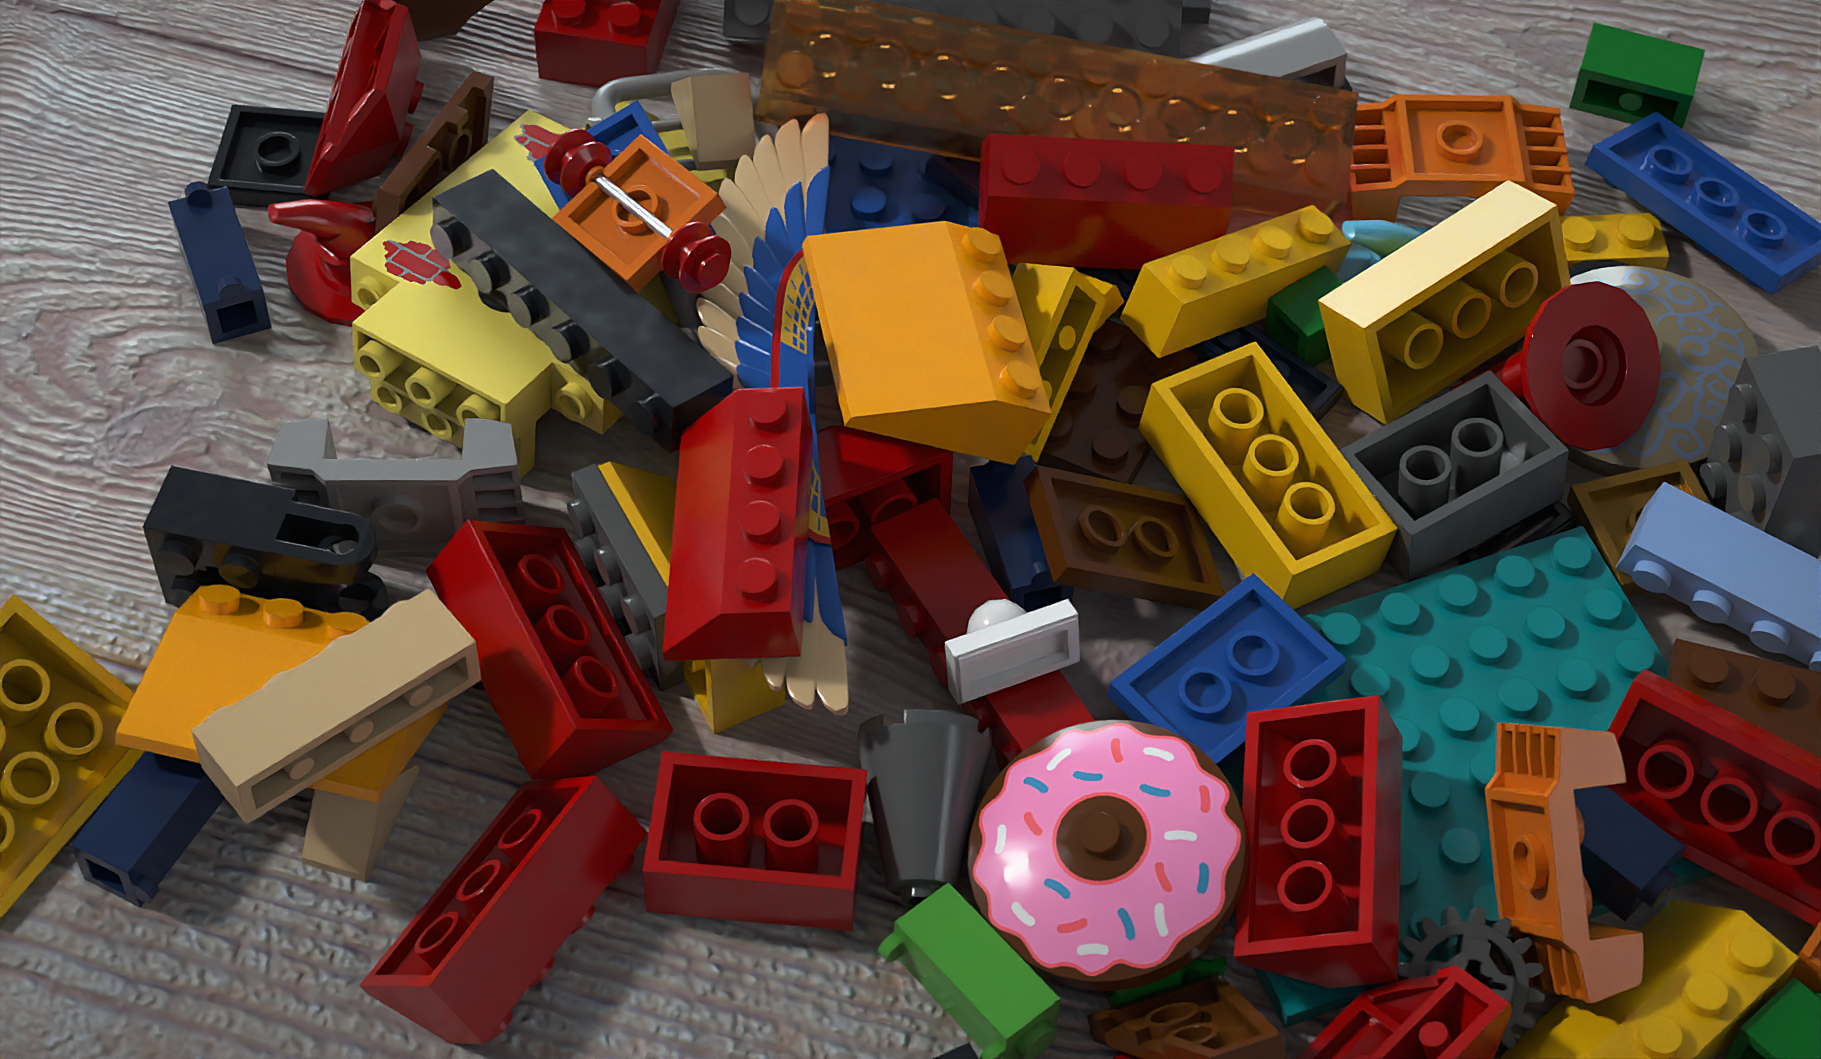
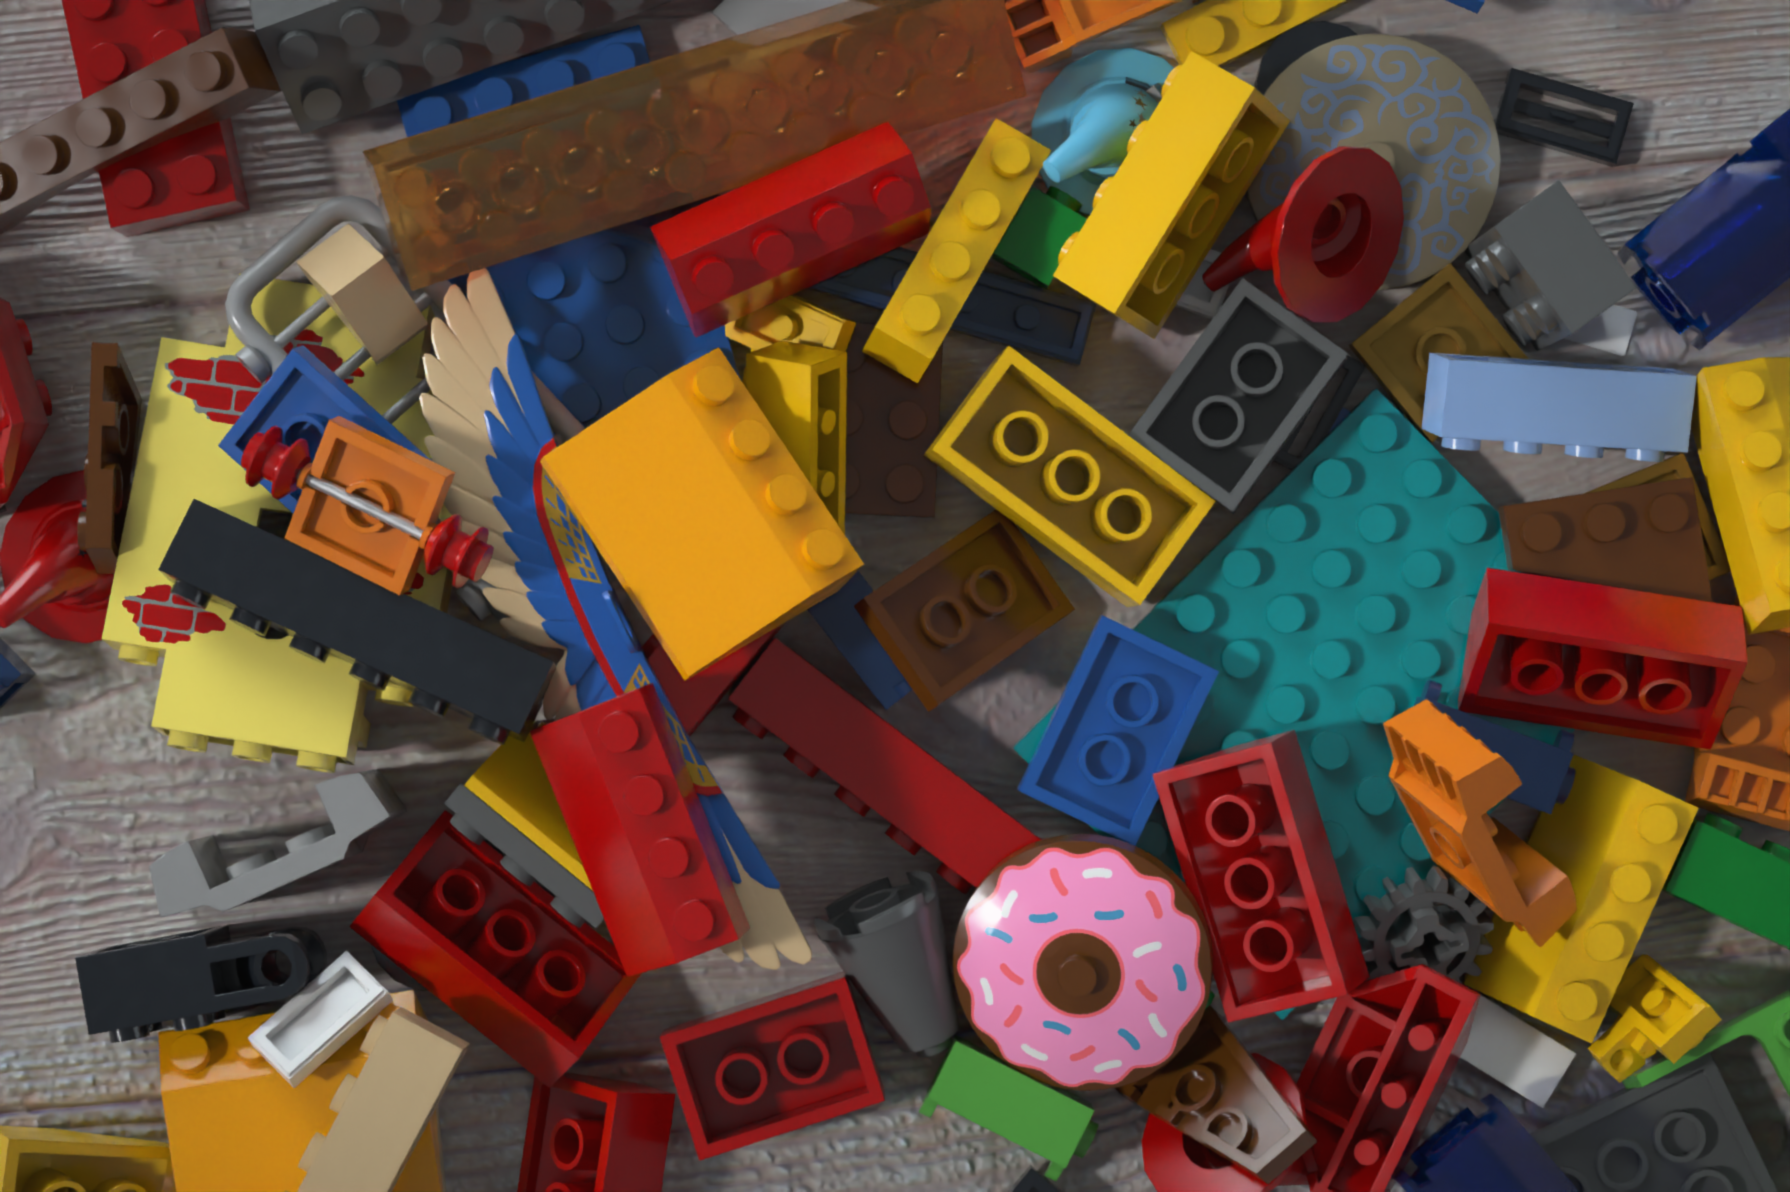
camera: 20 degrees left, 35 degrees up
(341, 608) = (320, 1019): none -> white tile
(1010, 647) = (913, 795): white tile -> none

